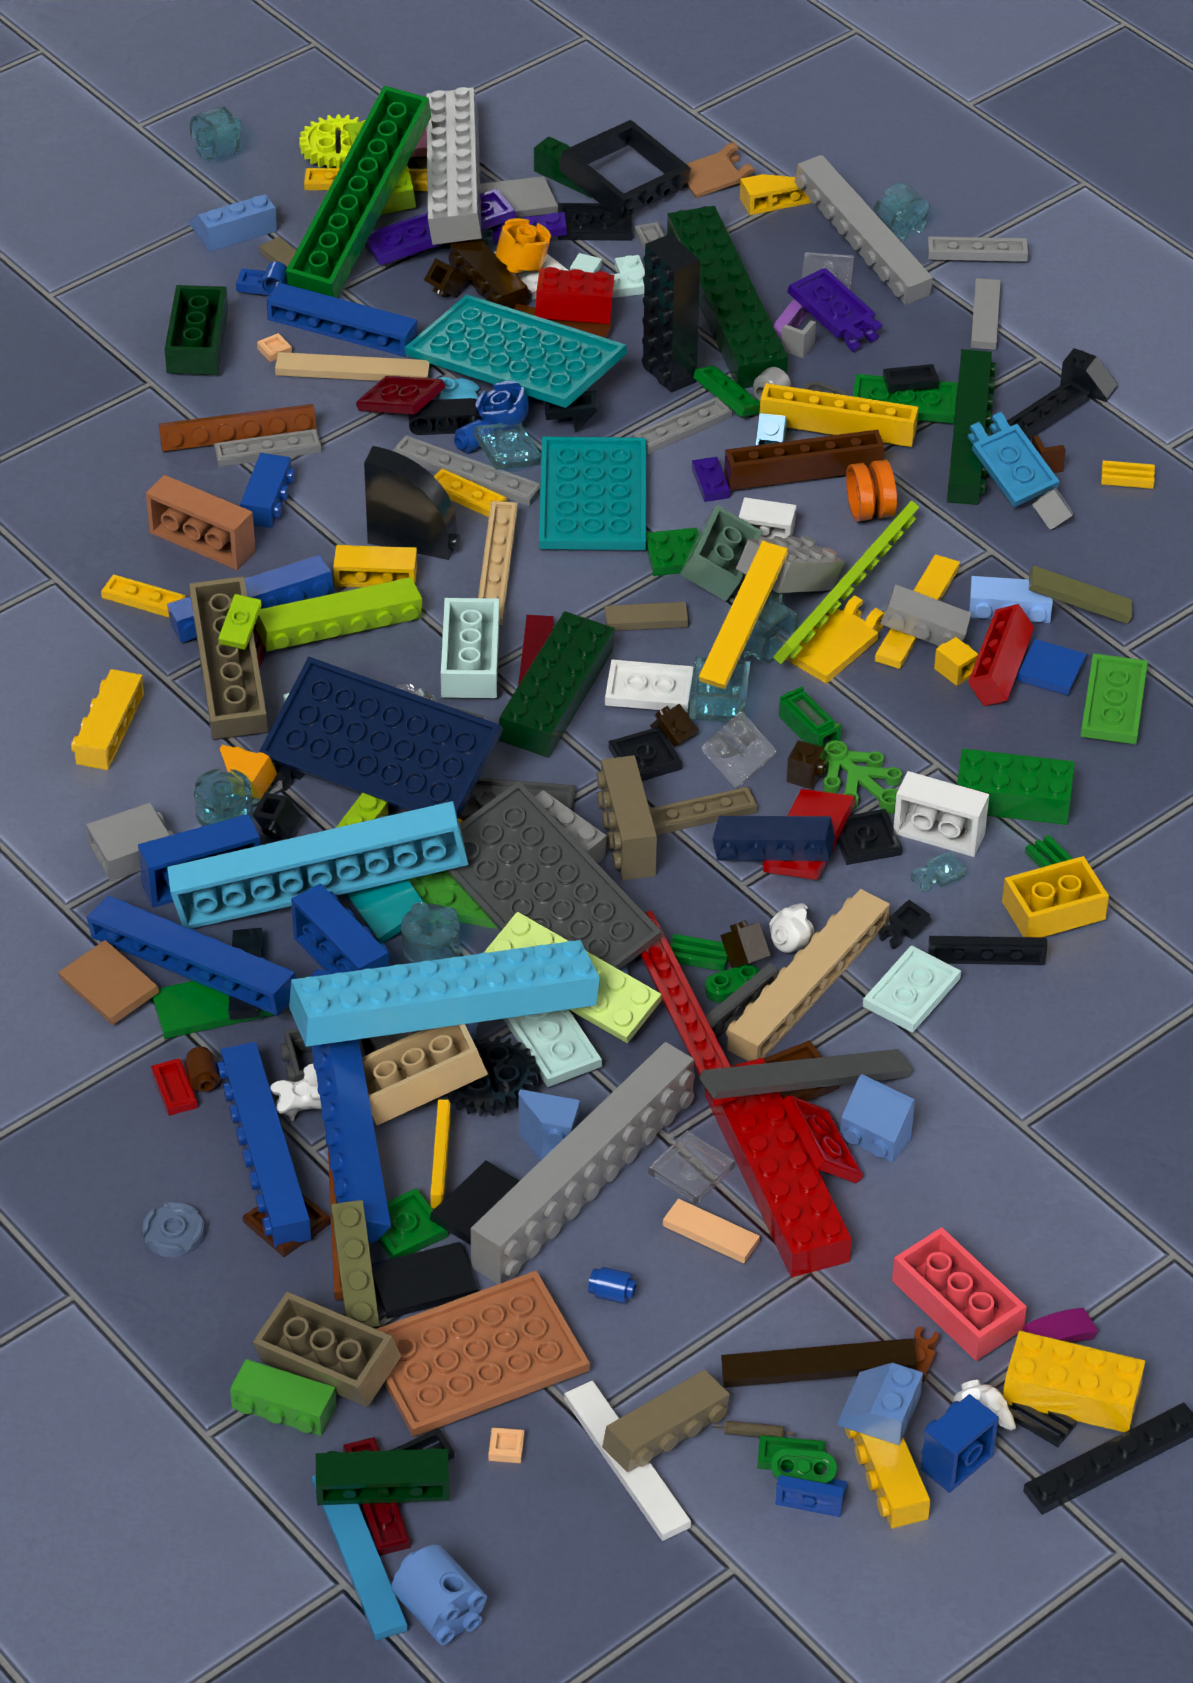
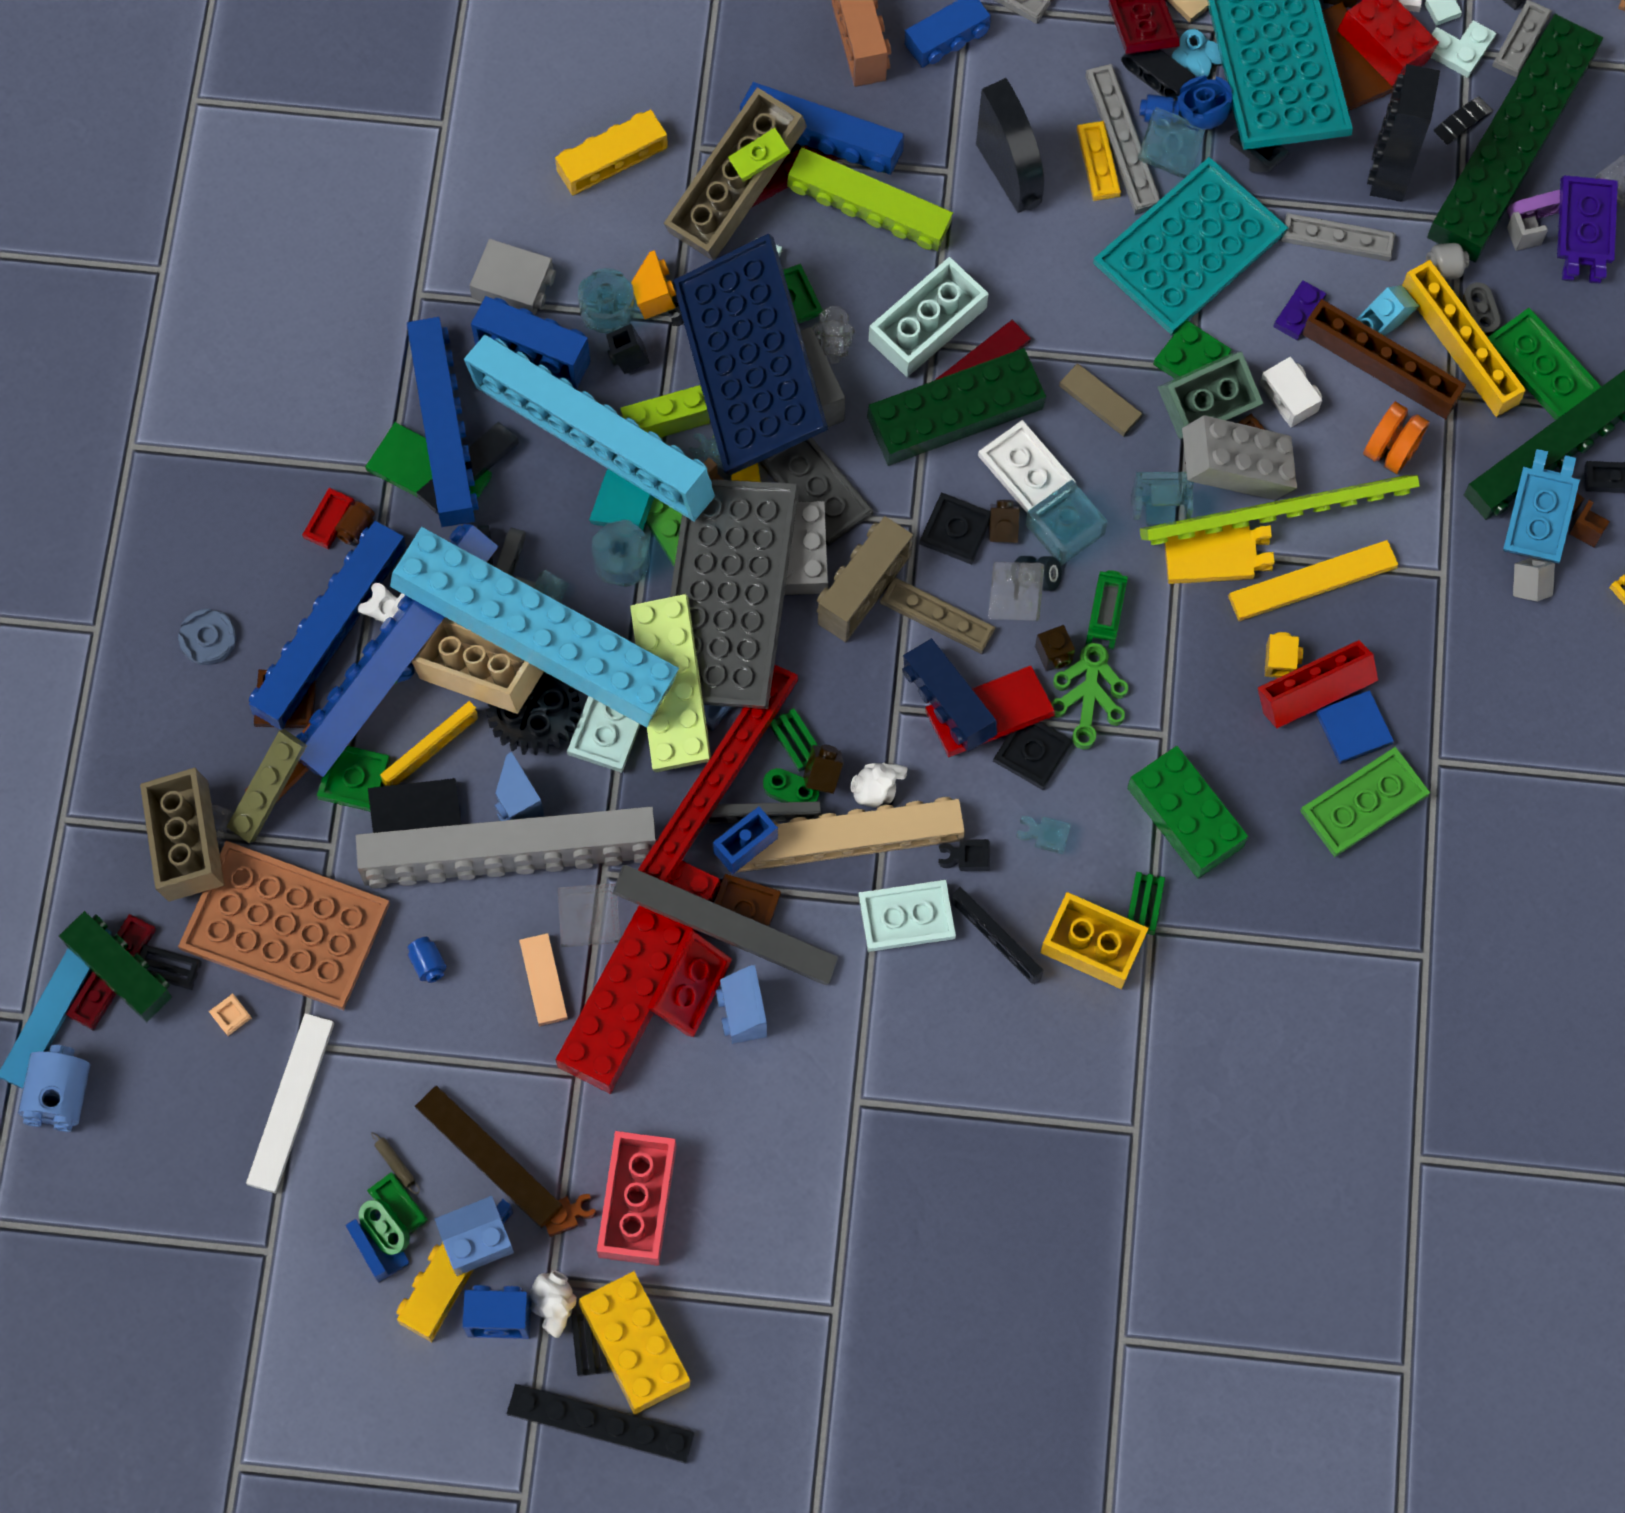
camera: 45 degrees right, 25 degrees up
(108, 982) = (373, 389): medium nougat tile -> none
(139, 595) = (759, 53): yellow tile -> none
(283, 1397) = (125, 840): bright green brick -> none
(334, 934) = (546, 506): blue brick -> none
(373, 565) = (948, 175): yellow brick -> none
(423, 1280) = (316, 833): black tile -> none
(498, 552) = (1046, 247): tan tile -> none
(666, 1421) = (336, 1103): dark tan brick -> none
(727, 391) = (1408, 233): green plate -> none
(743, 615) = (1131, 480): yellow tile -> none
(755, 1012) = (745, 840): none -> blue brick
(910, 378) = (1565, 351): black tile -> none
(924, 616) = (1297, 598): light grey brick -> none
(941, 813) = (1096, 787): white brick -> none
(996, 593) = (1393, 637): light blue brick -> none
(1064, 1326) = (680, 1292): magenta slope -> none
(1080, 594) = (1447, 684): olive tile -> none

